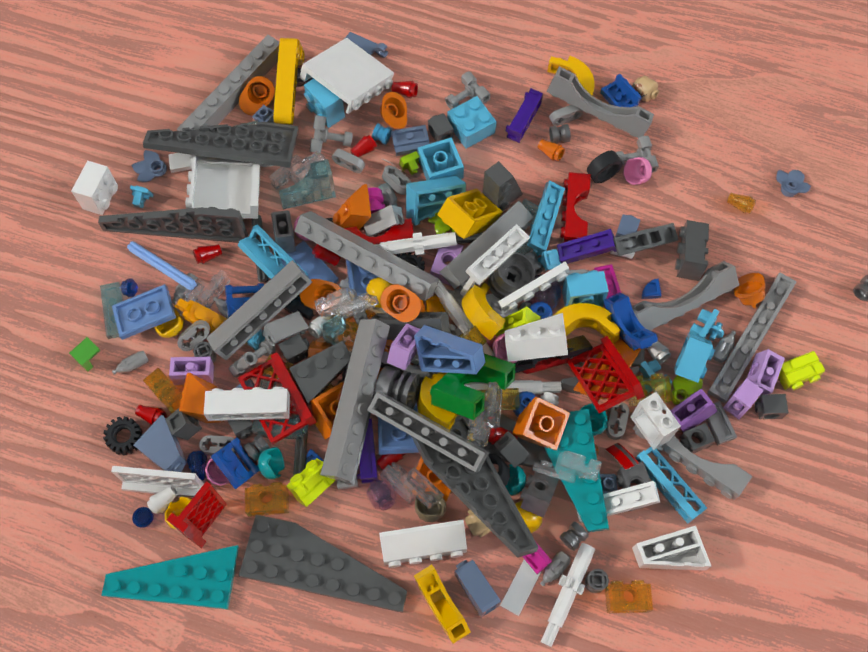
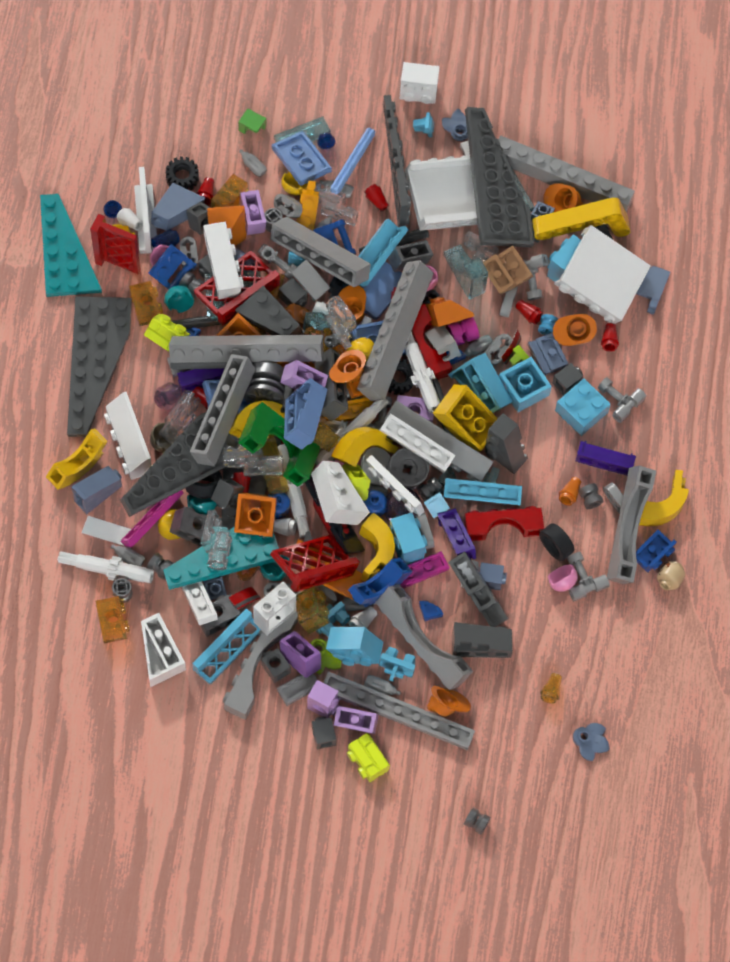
camera: 75 degrees right, 0 degrees up
(322, 147) = (507, 270): none -> medium nougat slope

